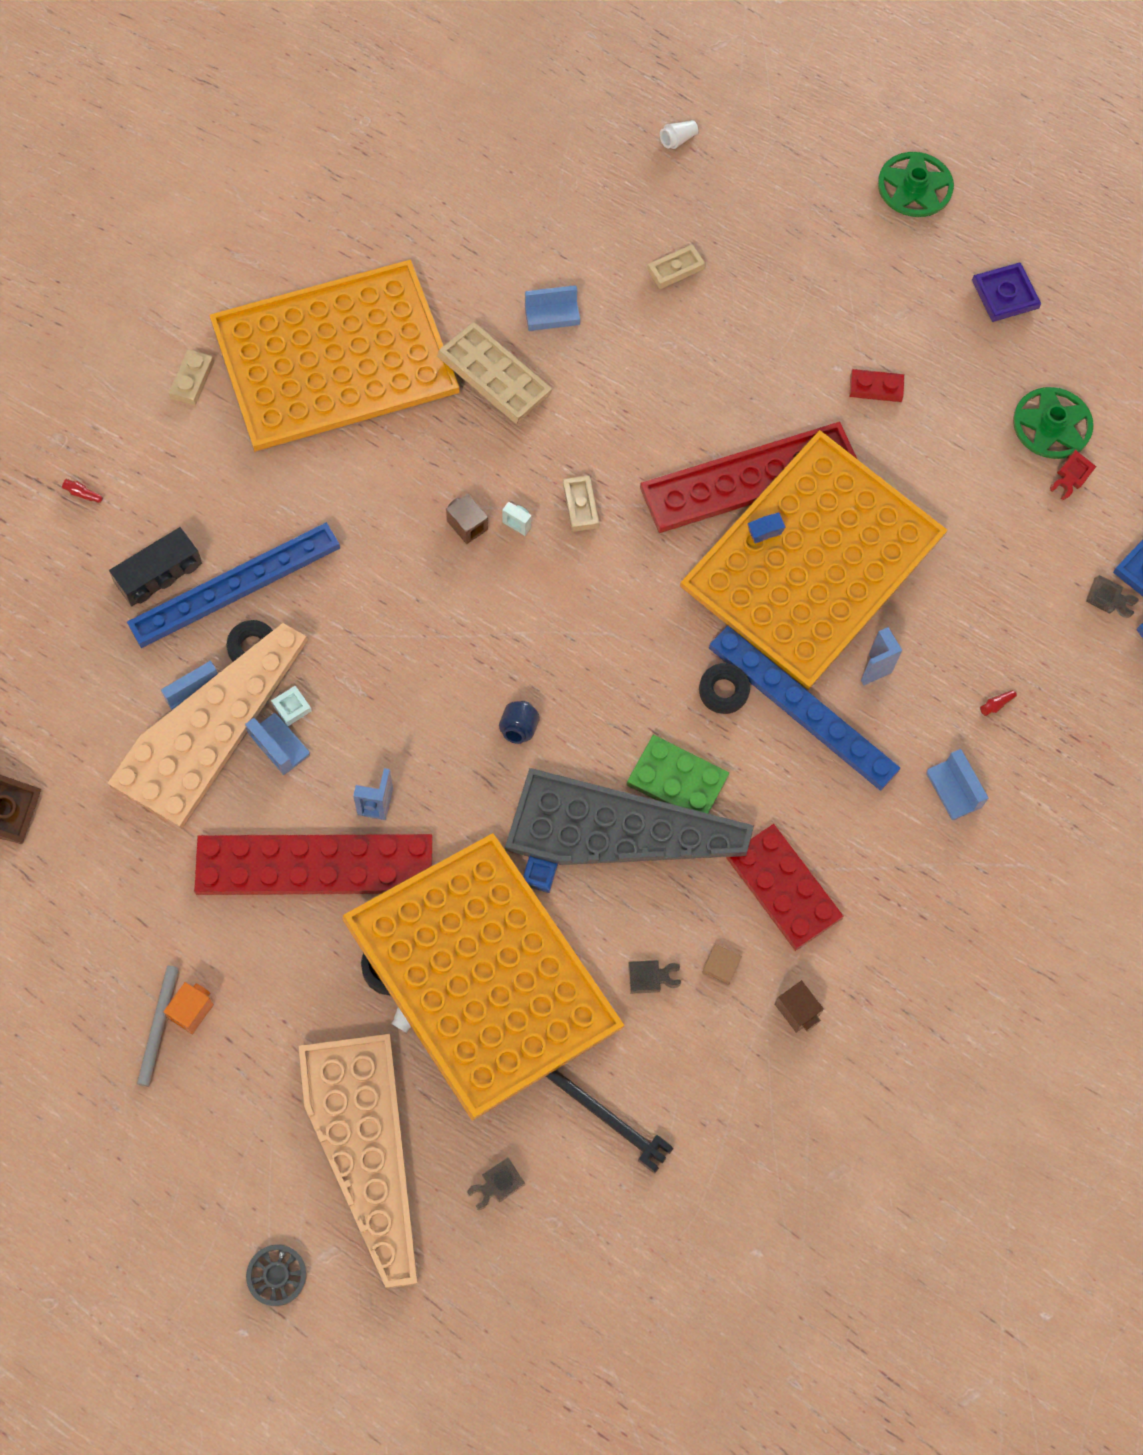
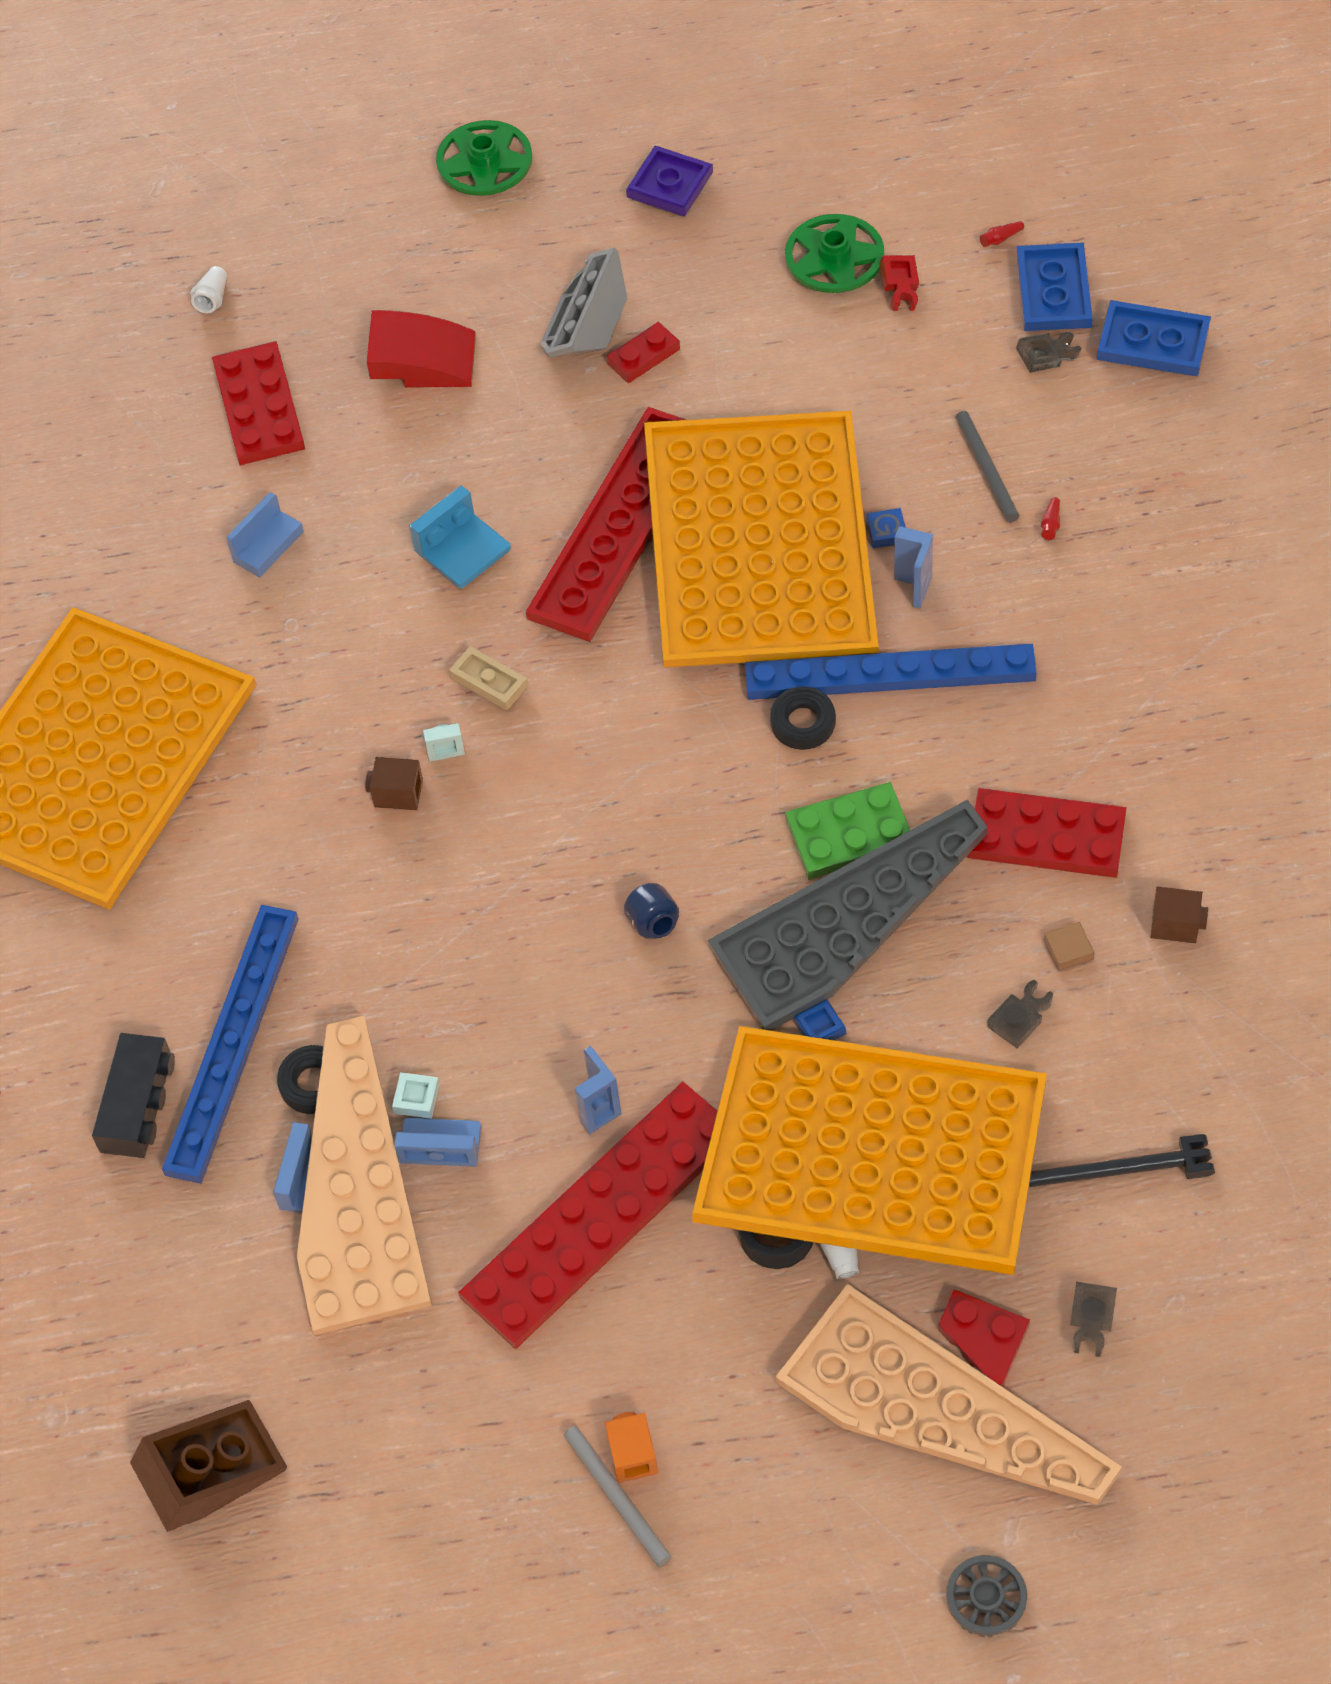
camera: 35 degrees left, 10 degrees down
(431, 1135) = (984, 1334): none -> red wing
(494, 372) = (274, 634): tan plate -> none
(634, 225) = (258, 403): none -> red plate
(650, 406) = (457, 539): none -> dark azure bracket
(676, 266) = (341, 404): tan plate -> none
(751, 272) = (420, 350): none -> red slope
(766, 527) = (691, 544): blue piece -> none
(869, 331) = (588, 308): none -> light grey wedge
(897, 619) = (883, 526): none -> blue tile
(957, 785) = (1097, 613): medium blue panel -> none
(996, 636) = (987, 467): none -> dark grey bar

